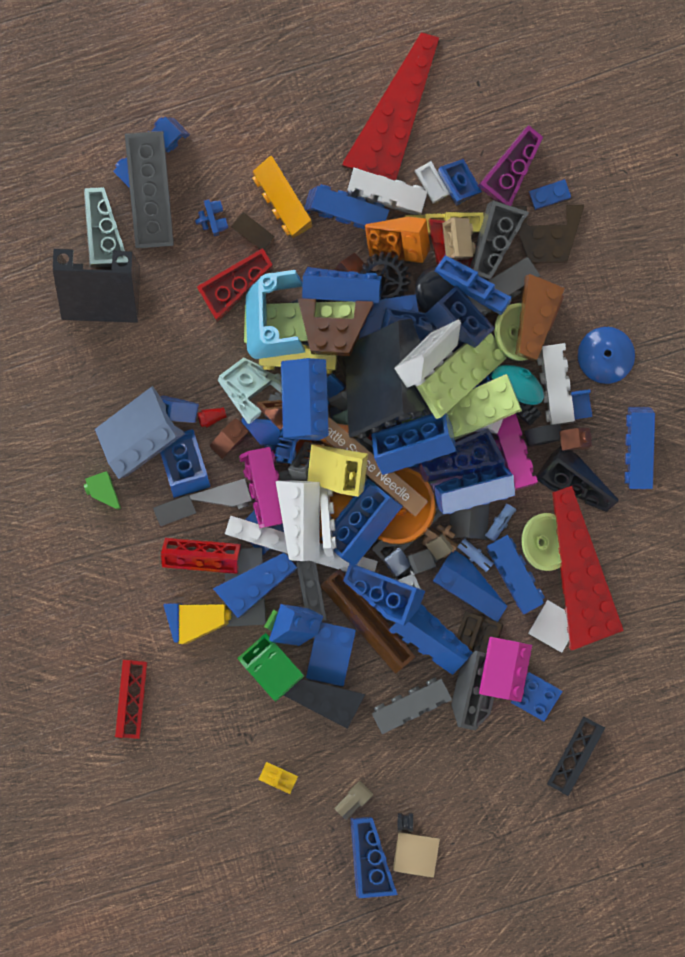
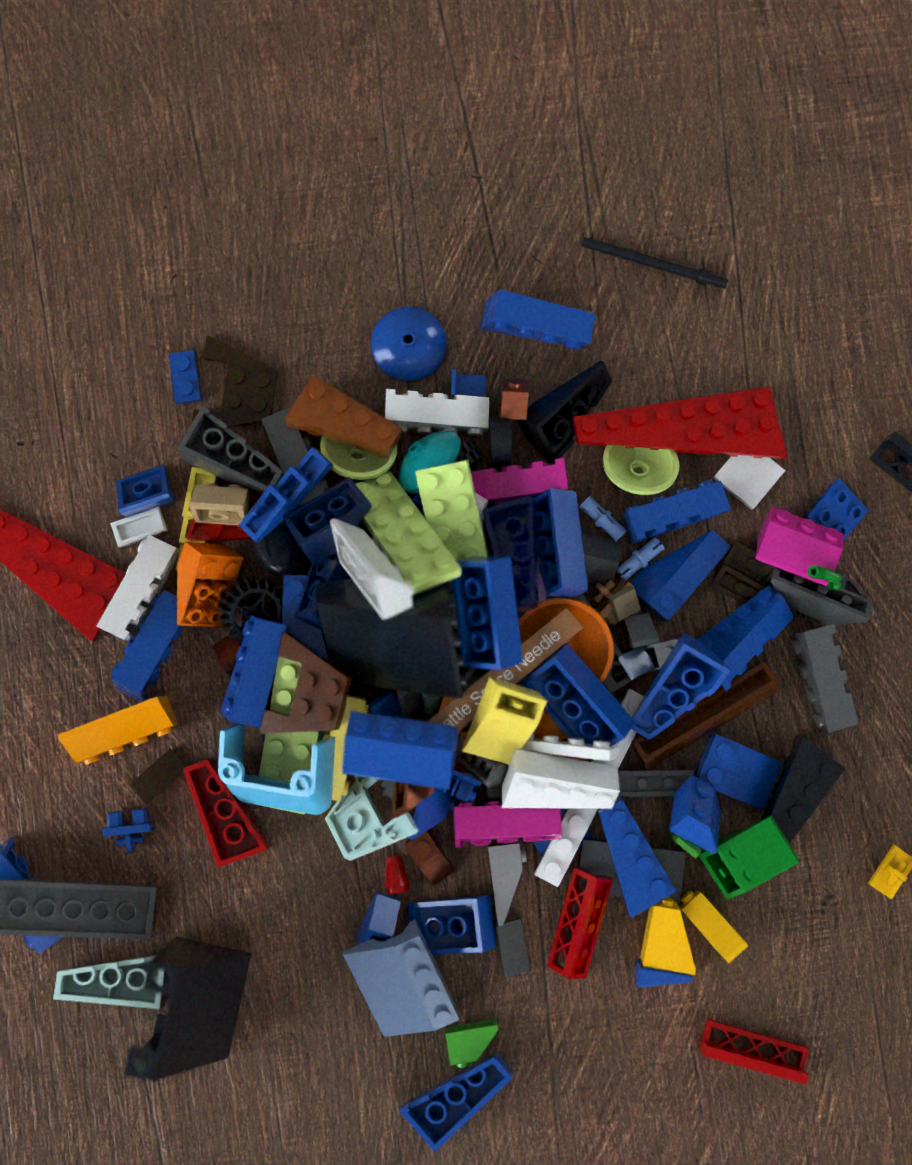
camera: 85 degrees left, 0 degrees up
(58, 485) = (453, 1102): none -> blue wedge
(217, 650) = (712, 925): none -> yellow slope
(487, 688) = (824, 573): none -> green arm
(508, 172) = (145, 424): magenta wedge -> none

